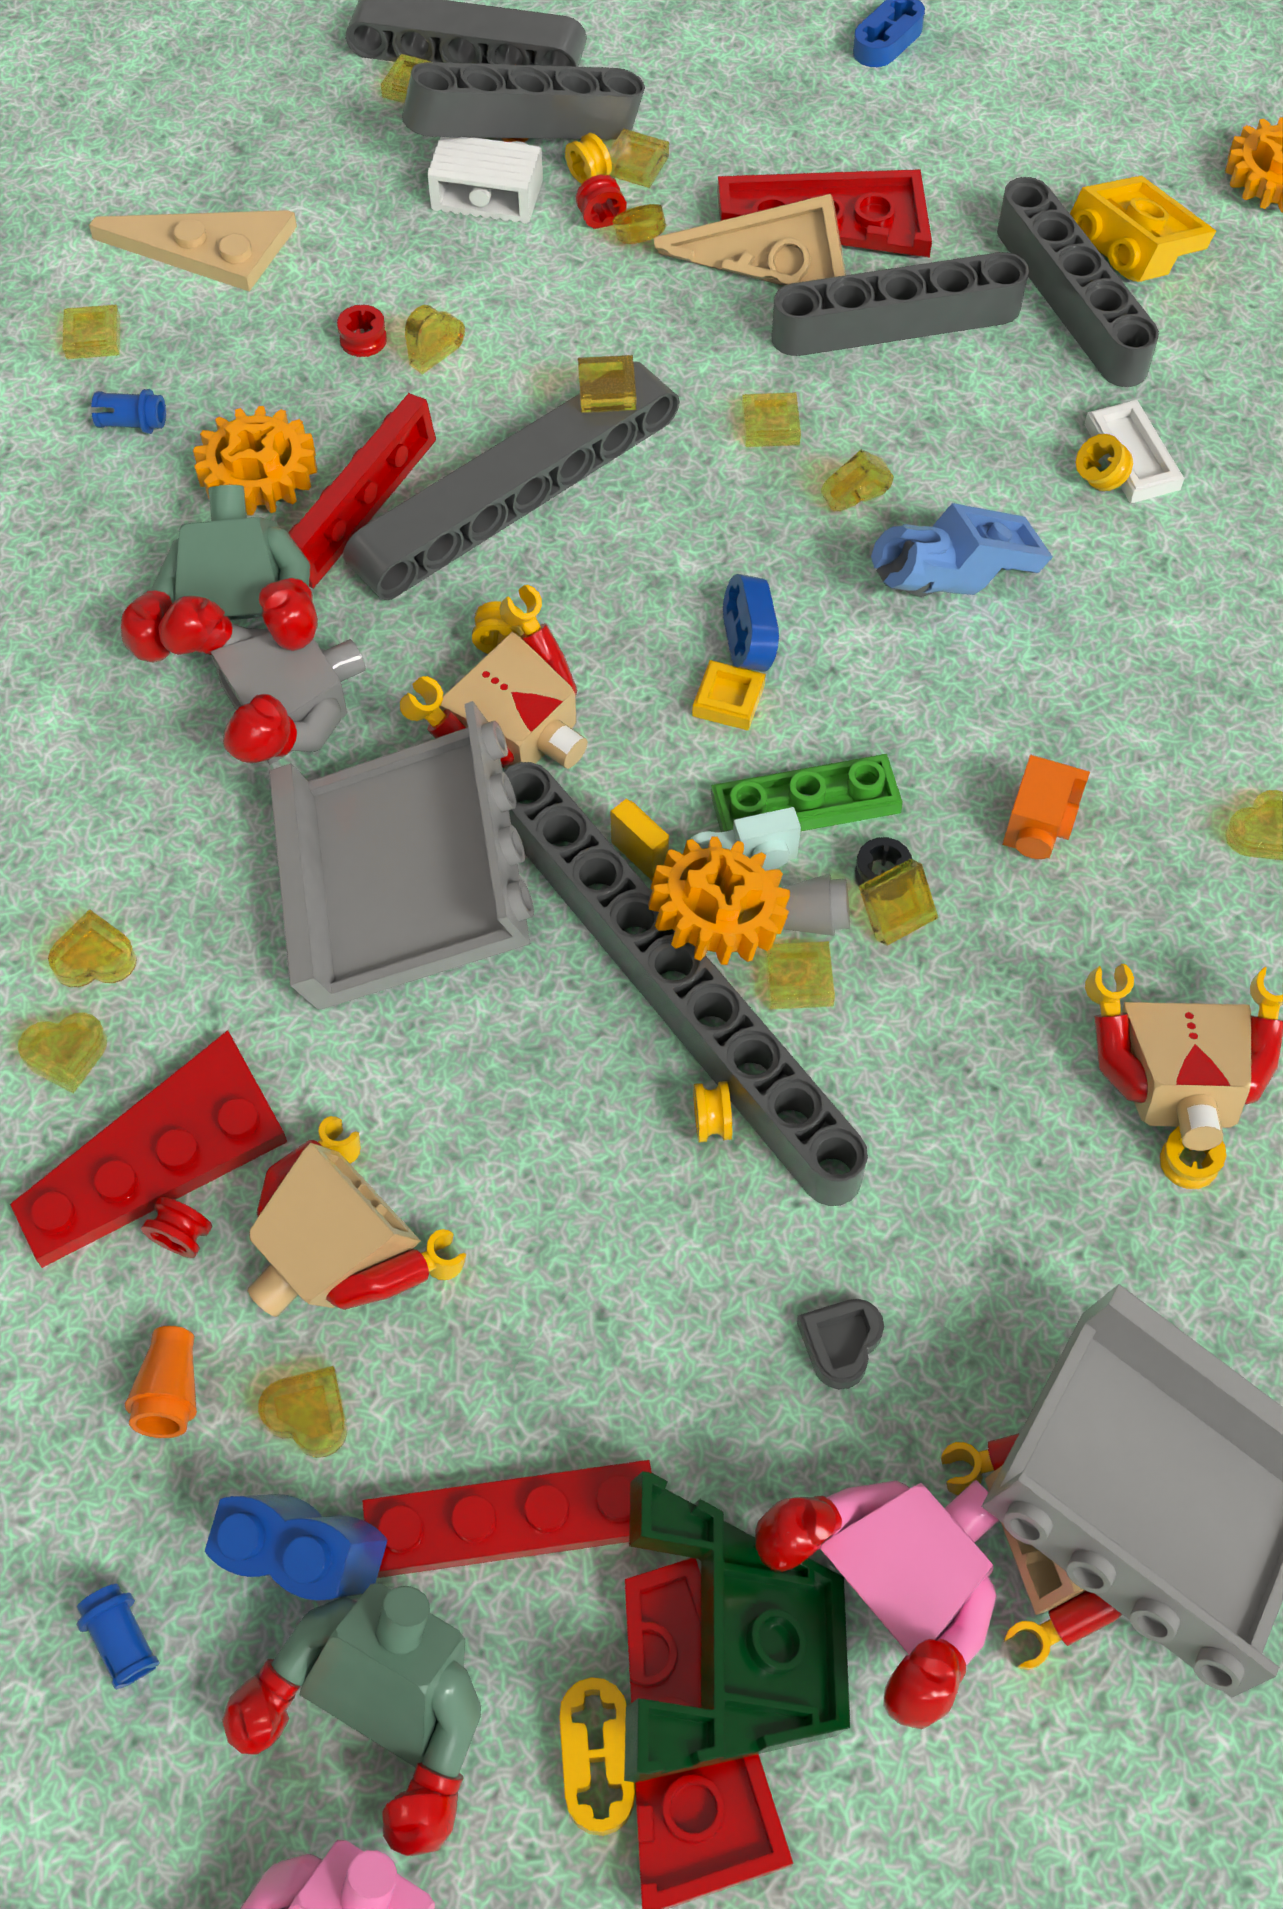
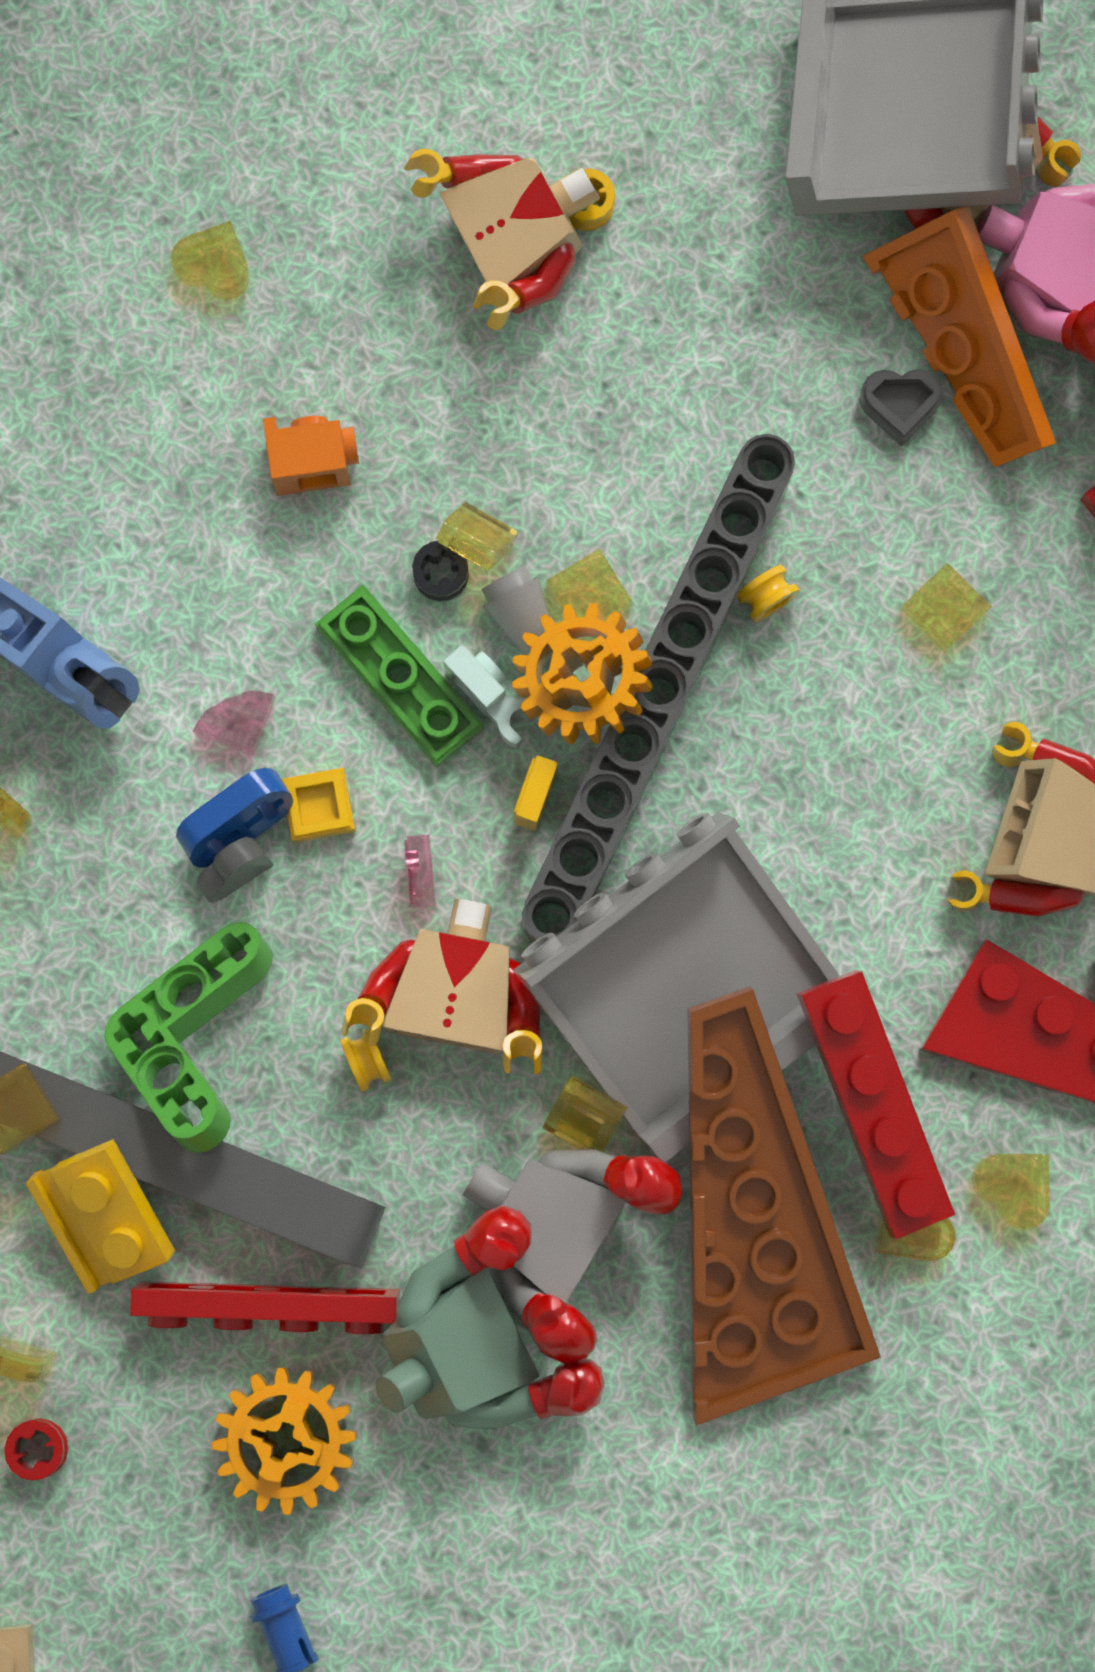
camera: 120 degrees left, 20 degrees up
(167, 814) = (766, 1257): none -> dark orange wing
(204, 947) = (875, 1104): none -> red plate
(349, 749) = (584, 1116): none -> clear yellow tile
(494, 413) = (100, 1216): none -> yellow plate
(606, 496) = (168, 1026): none -> bright green beam
(611, 1271) = (946, 607): none -> clear yellow tile
(631, 734) = (420, 870): none -> clear pink tile
(709, 612) = (233, 868): none -> dark grey tile
(832, 671) = (237, 721): none -> clear pink tile
(871, 1422) = (956, 306): none -> orange wing

